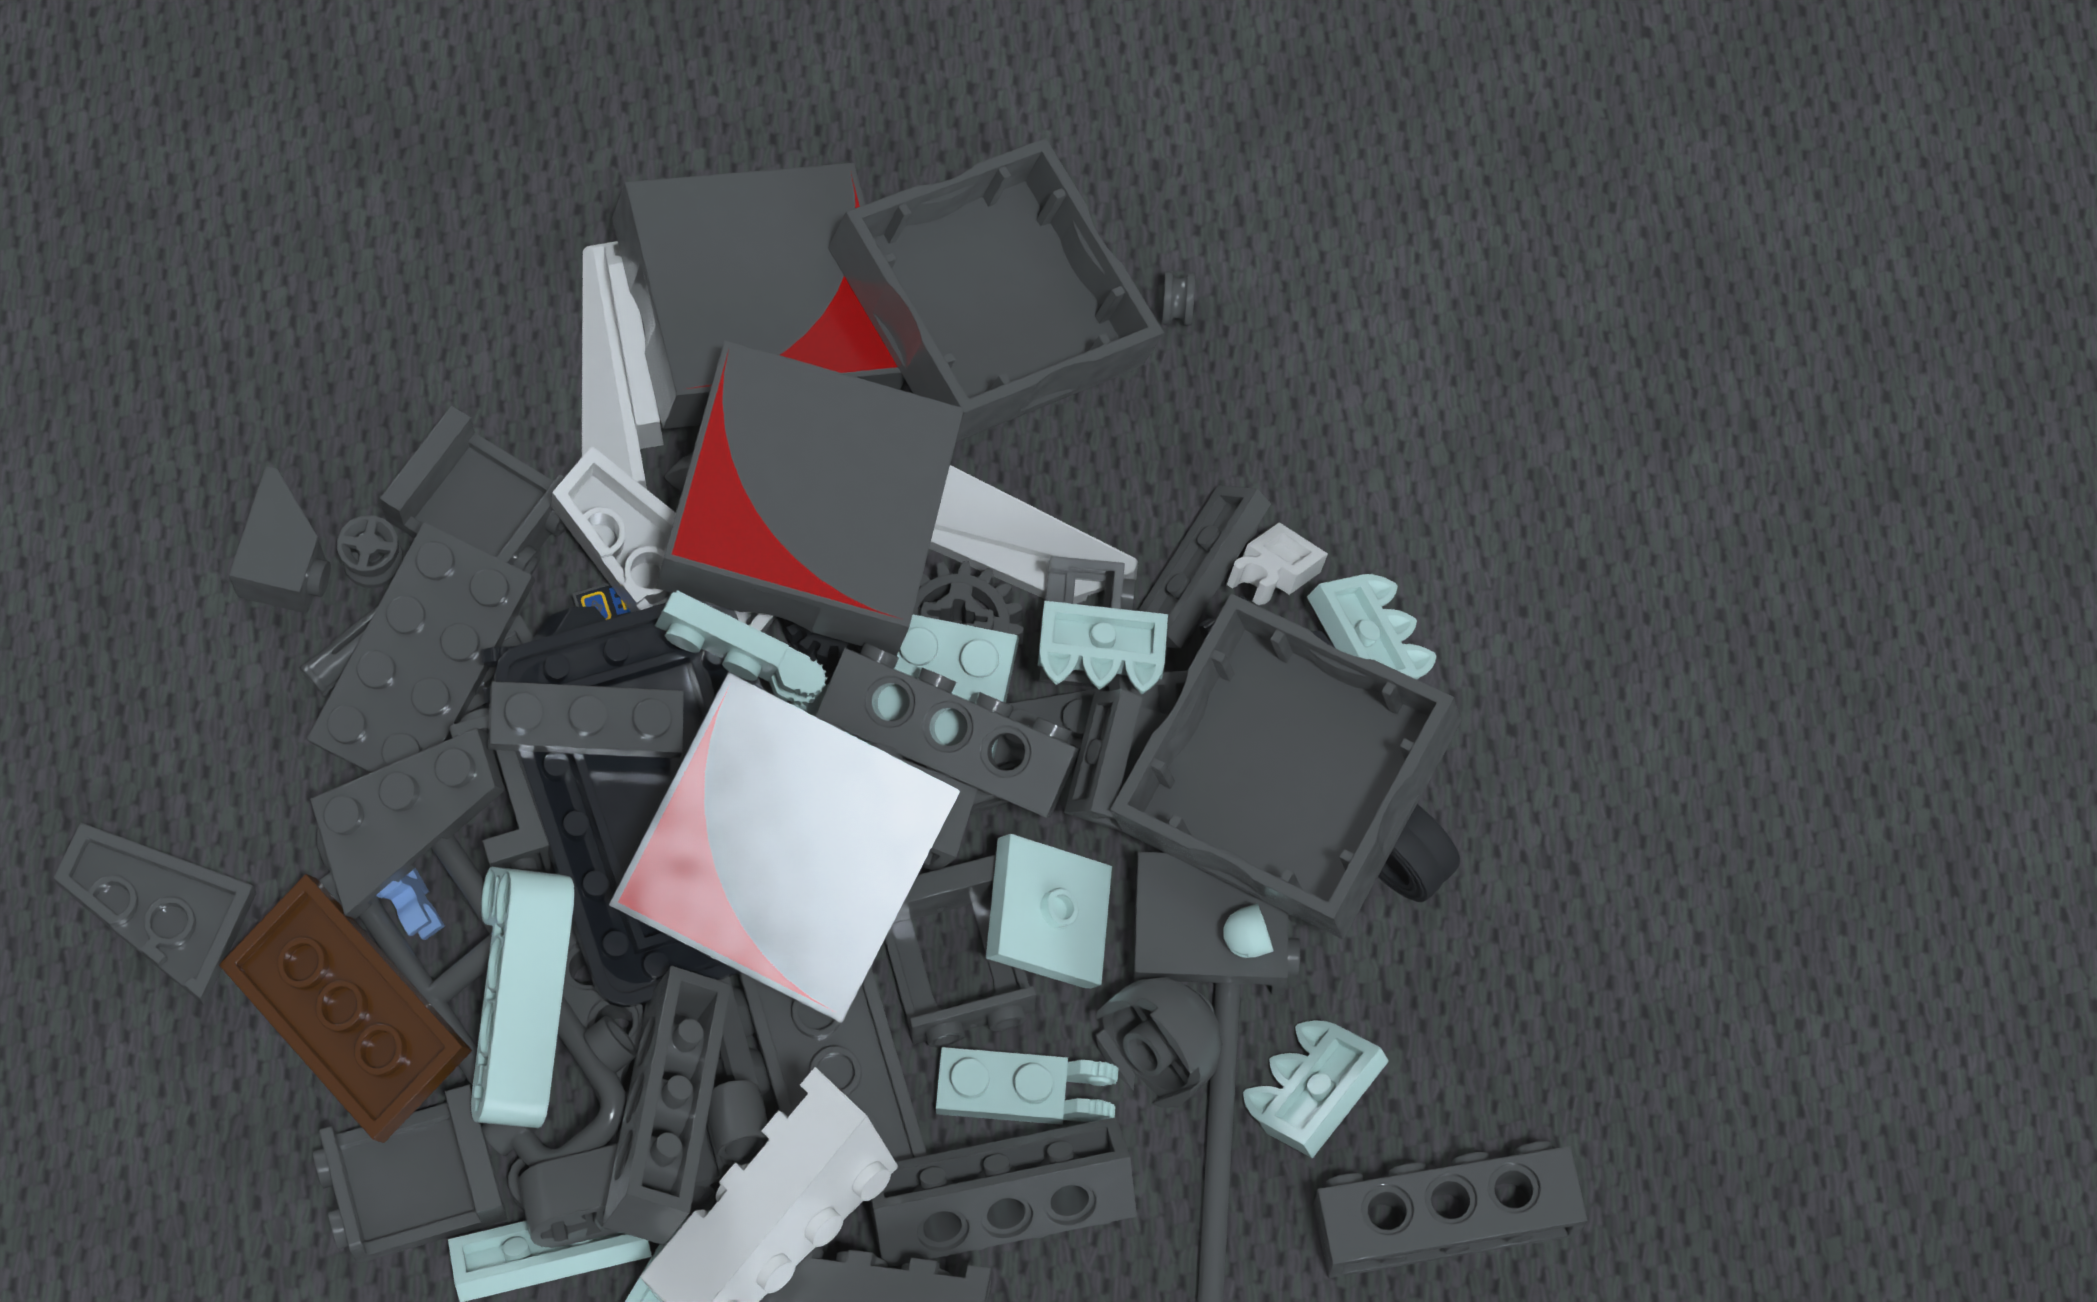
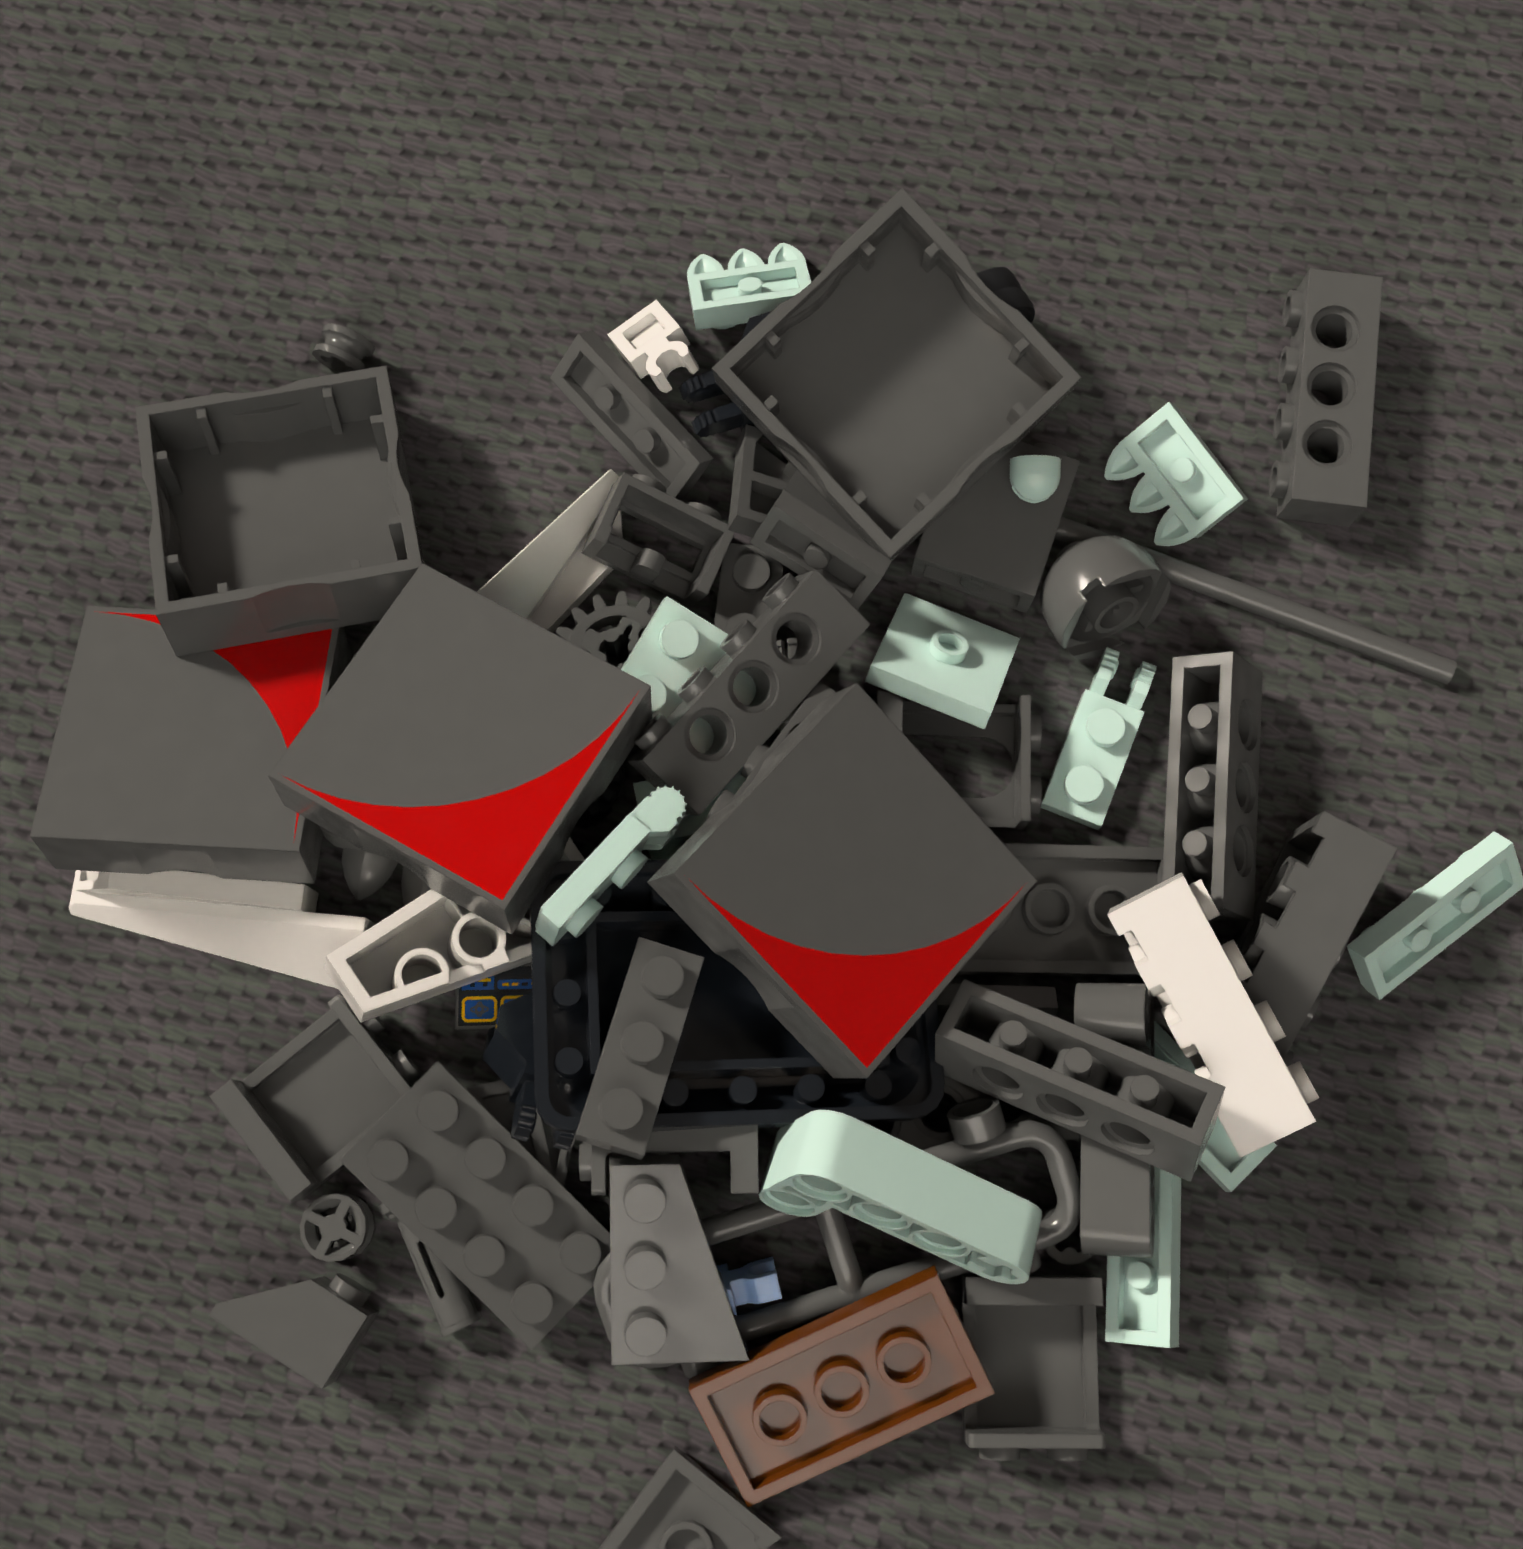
camera: 70 degrees left, 10 degrees up
(1102, 644) = (704, 514): light aqua plate -> none

